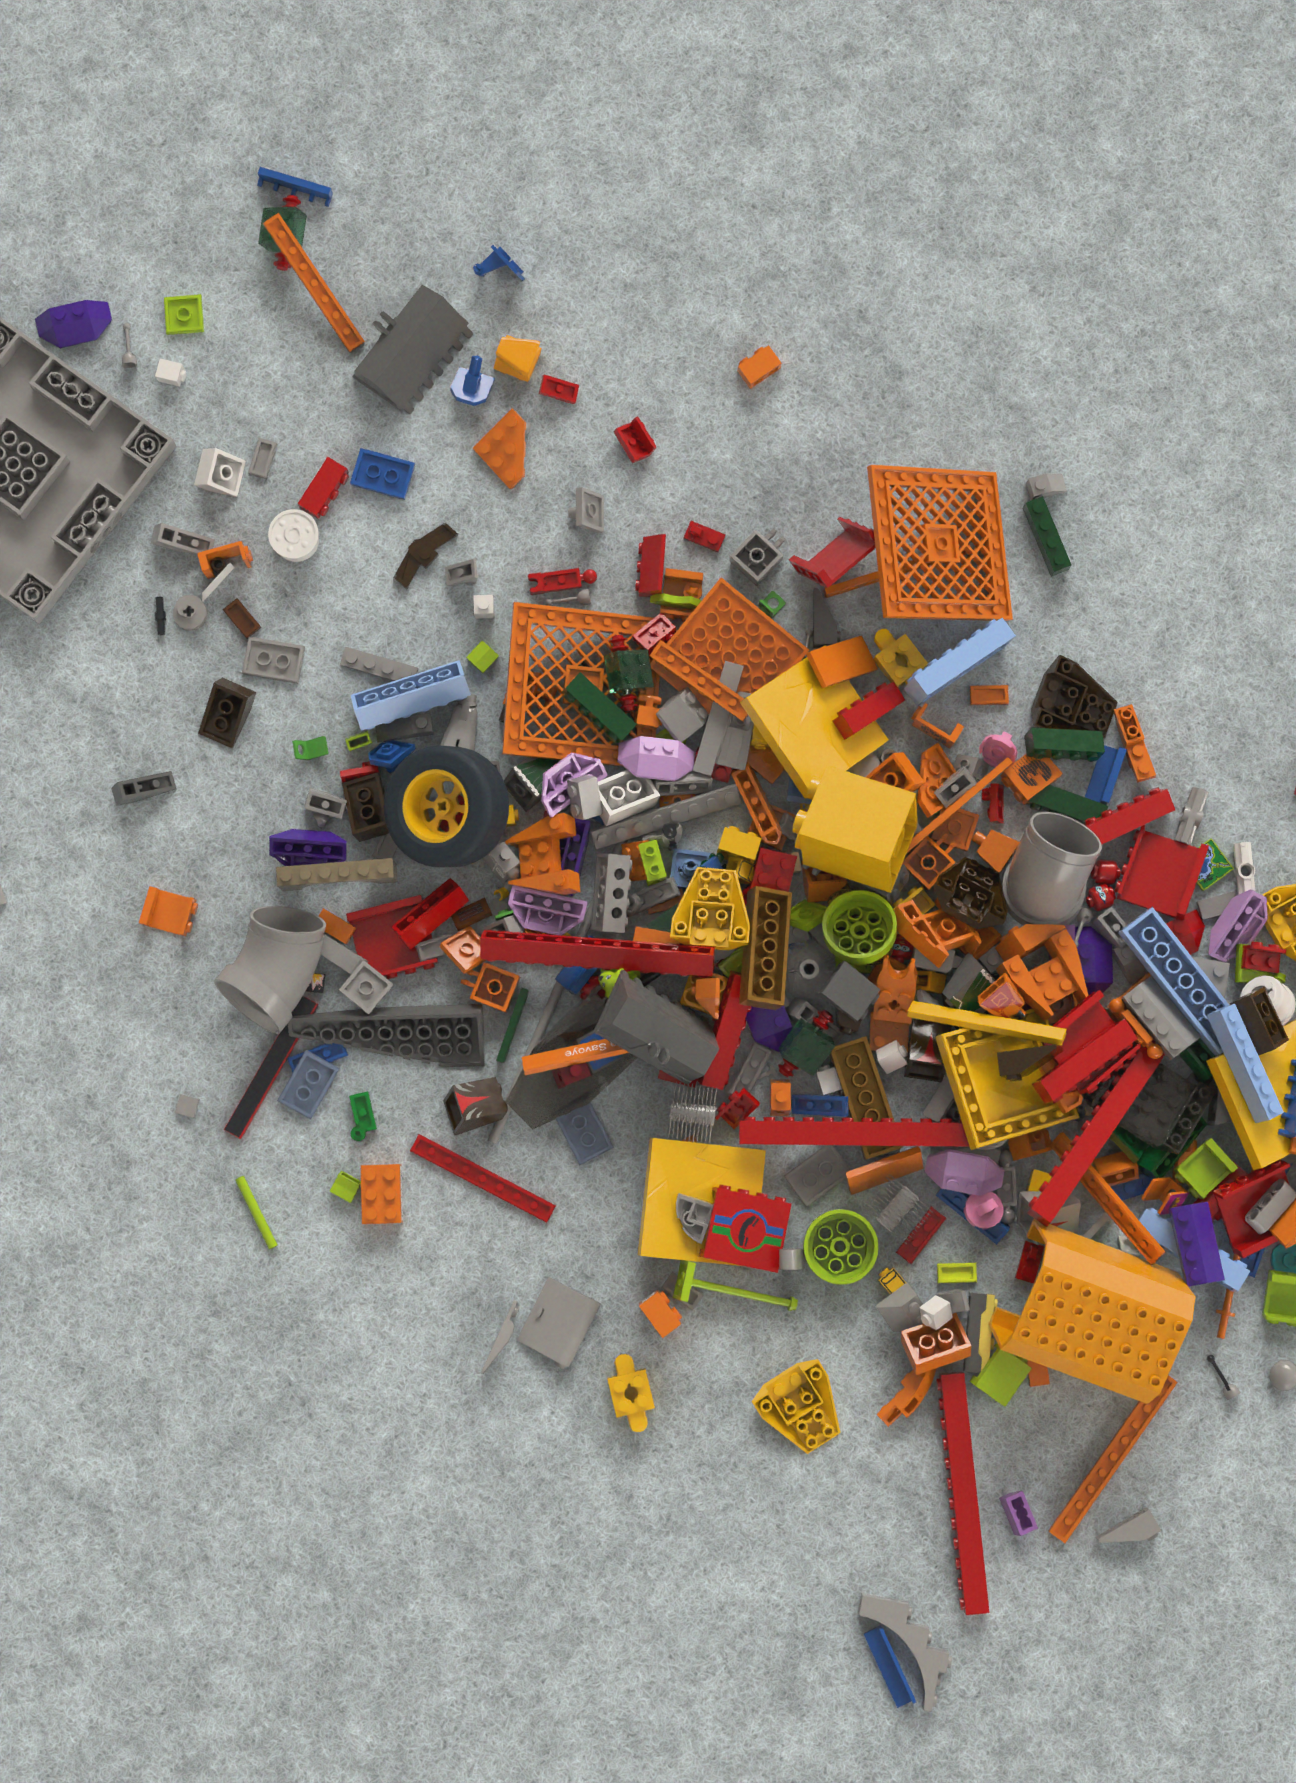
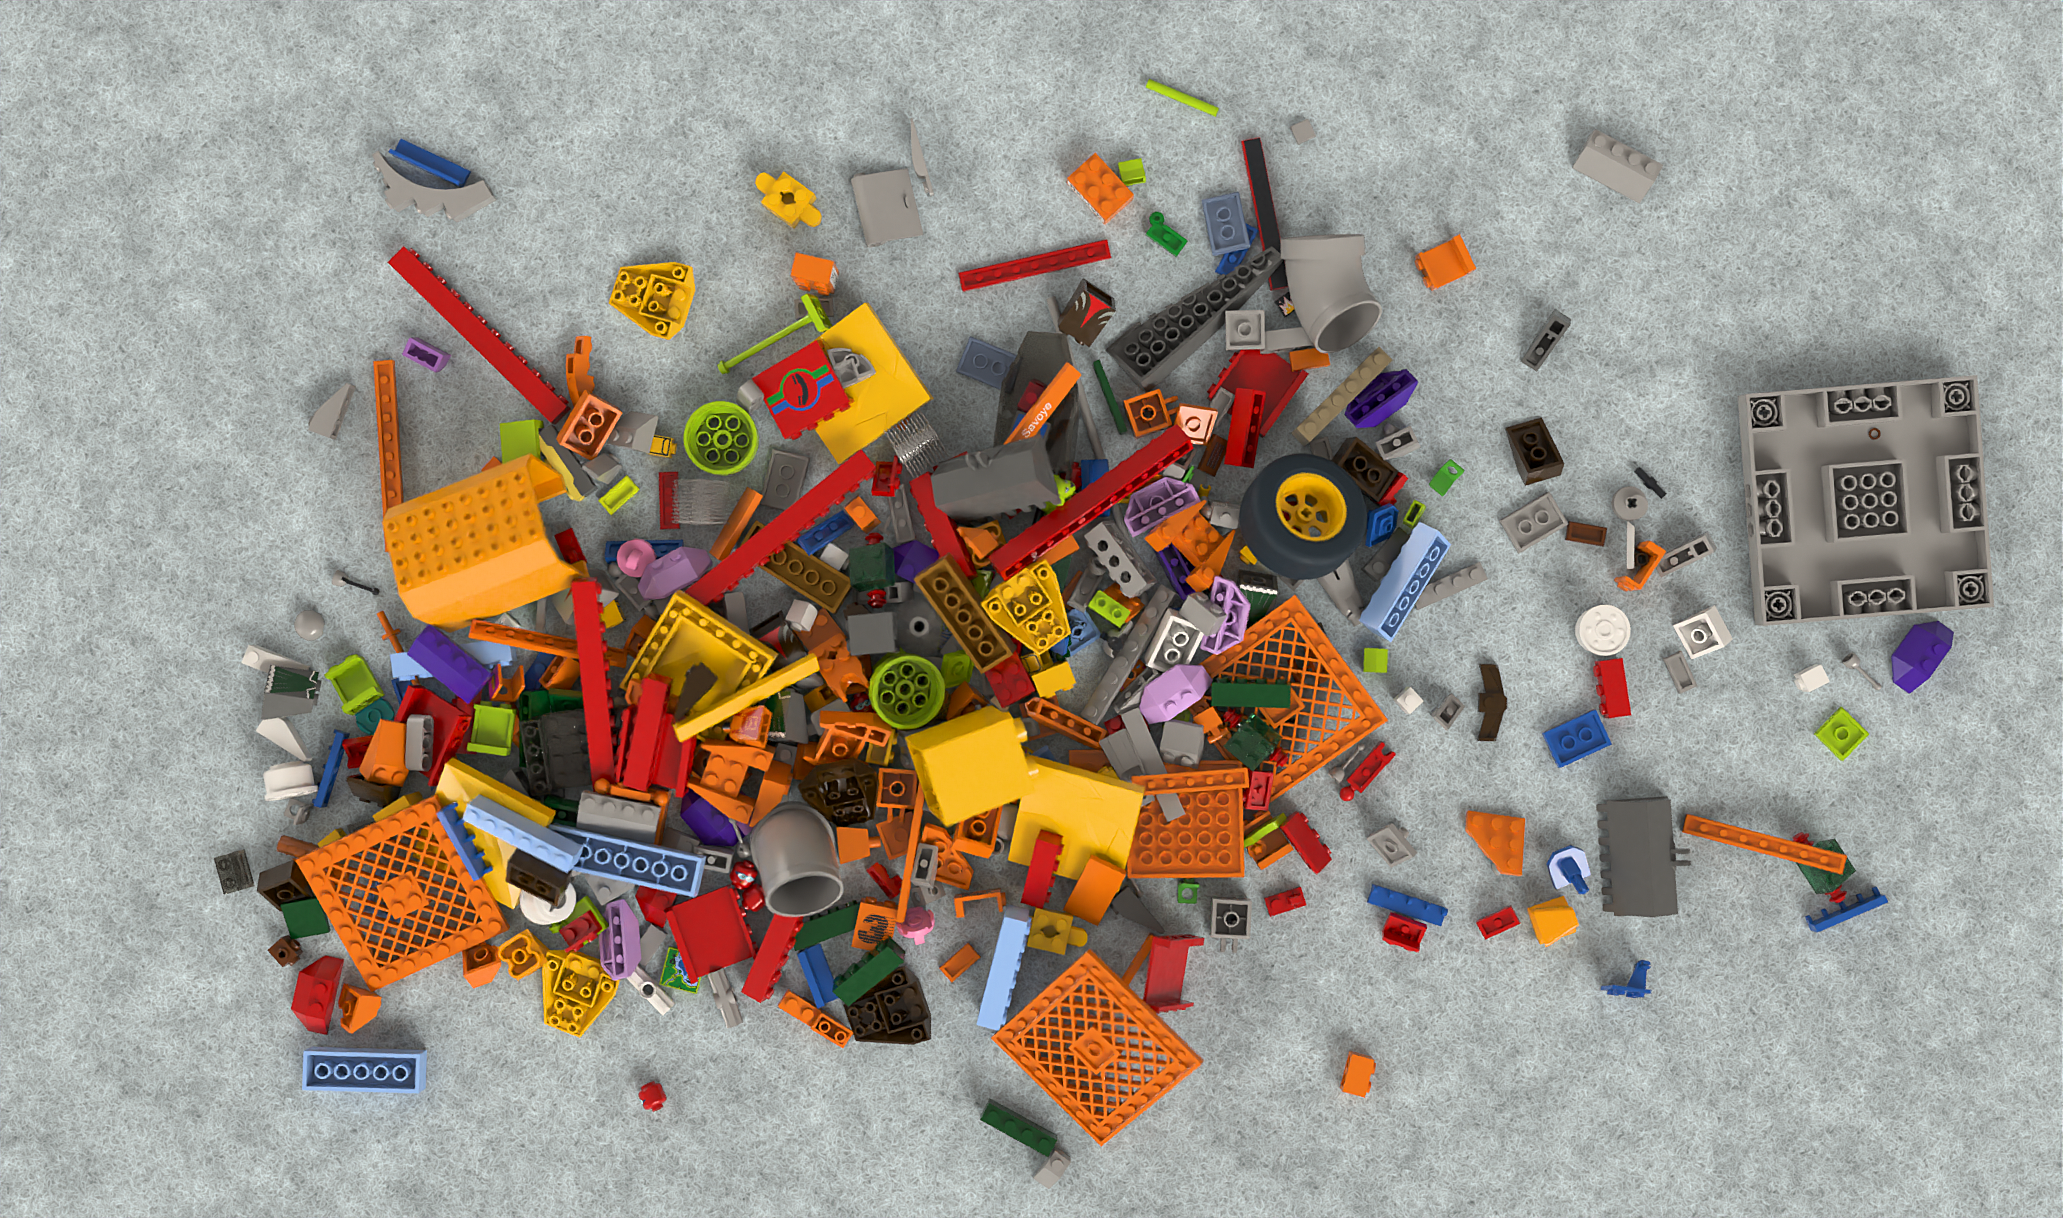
camera: 140 degrees right, 5 degrees up
(615, 458) = (1407, 905): none -> blue hinge
(936, 1312) = (607, 447): white brick -> none

